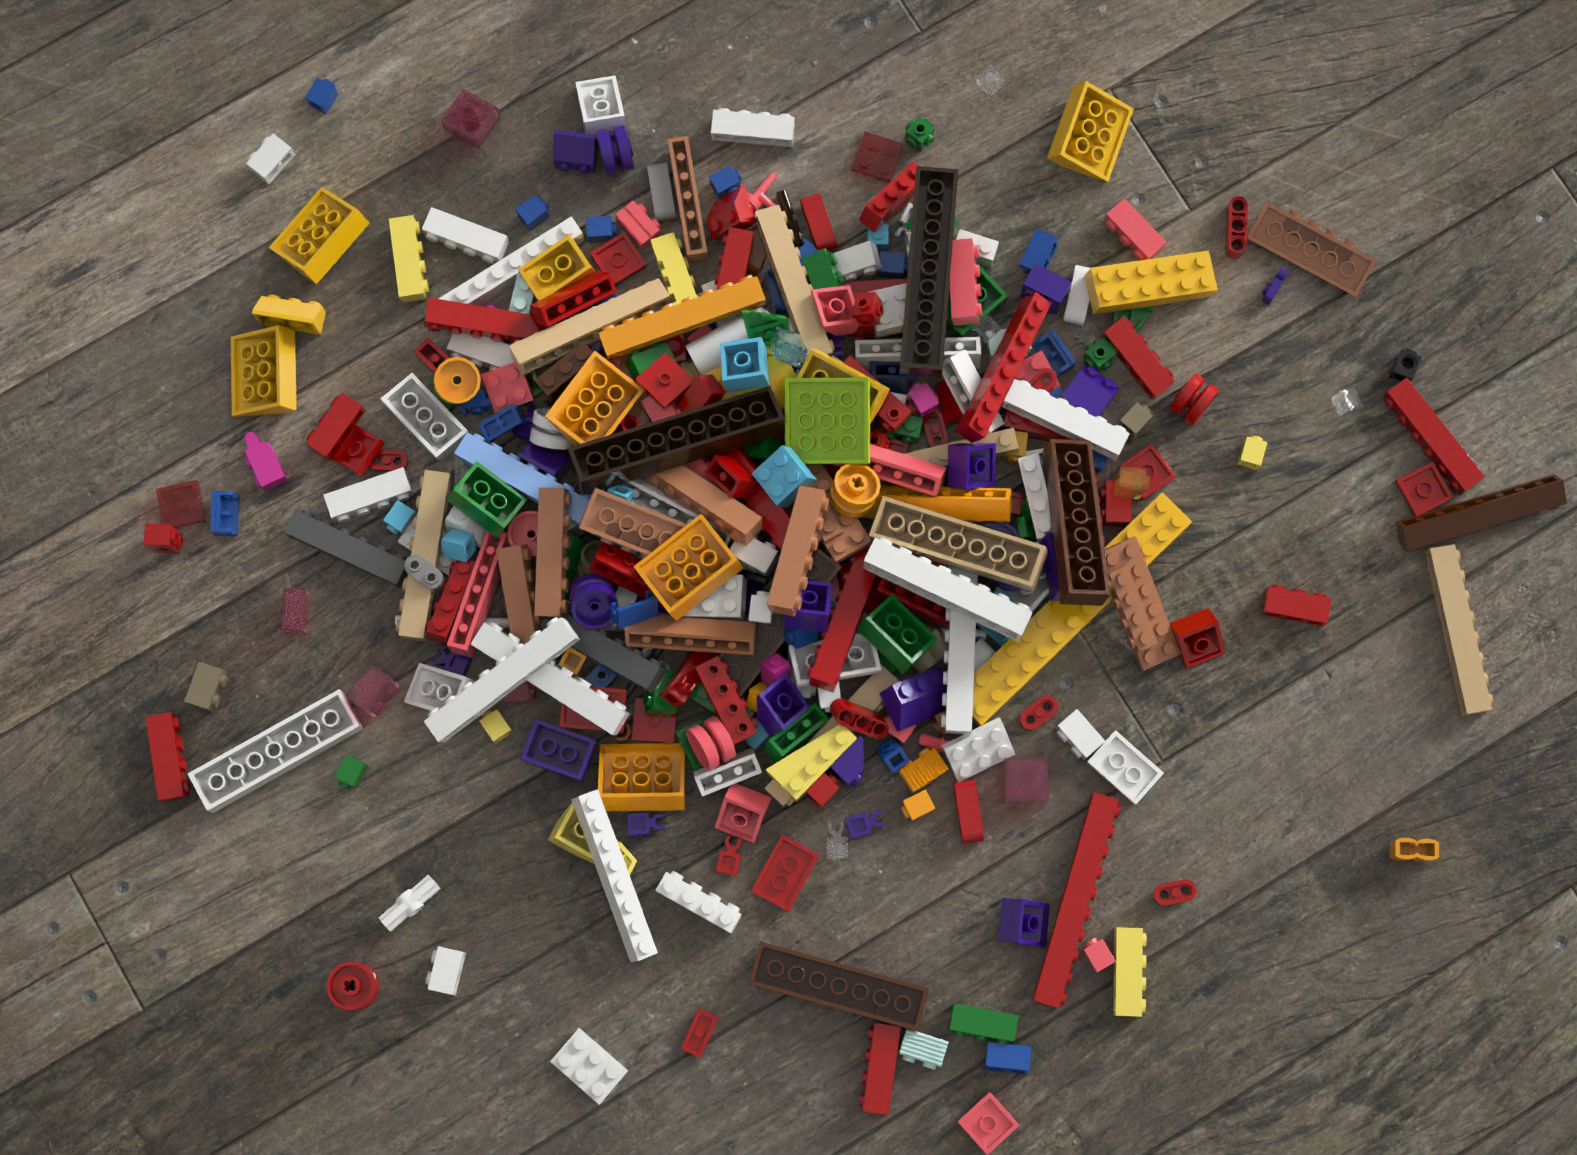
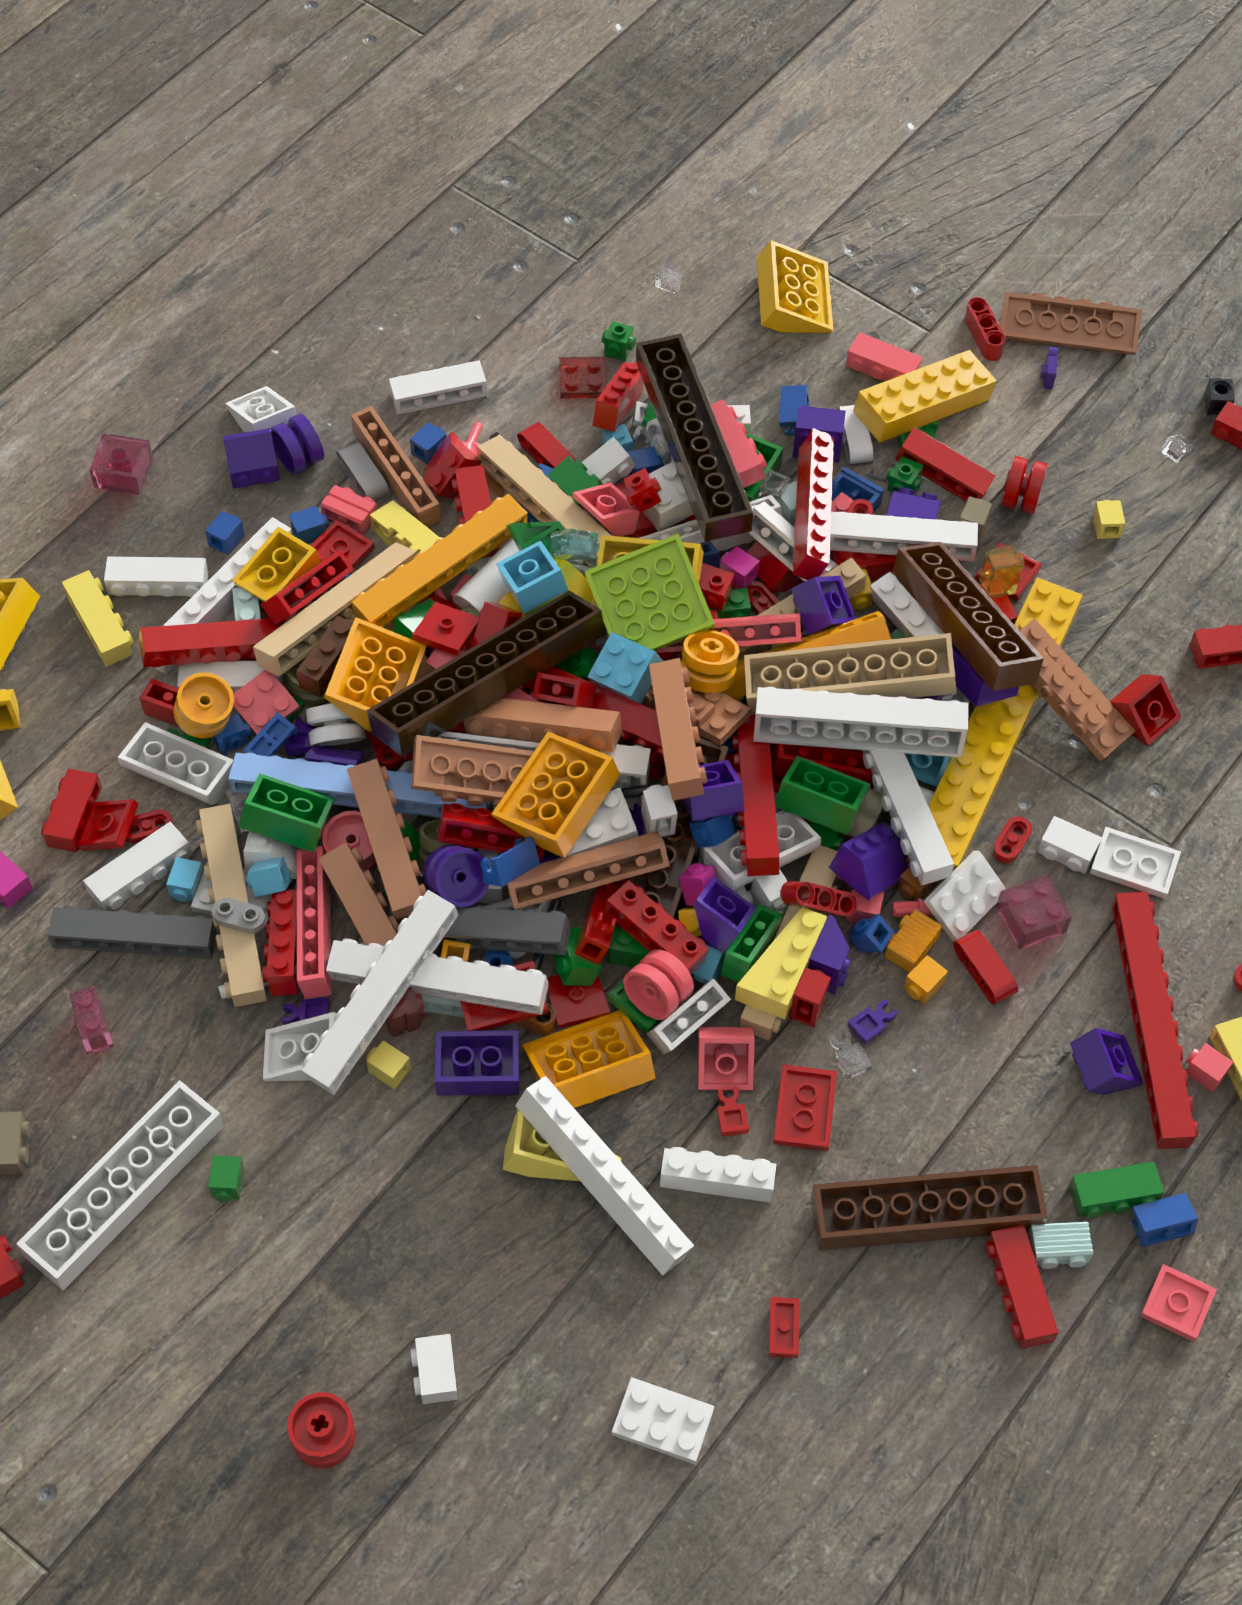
camera: 25 degrees left, 20 degrees down
(373, 691) = (223, 1072): clear pink brick -> none
(409, 903) = (357, 1305): white piece -> none
(641, 823) = (610, 1113): dark purple plate -> none

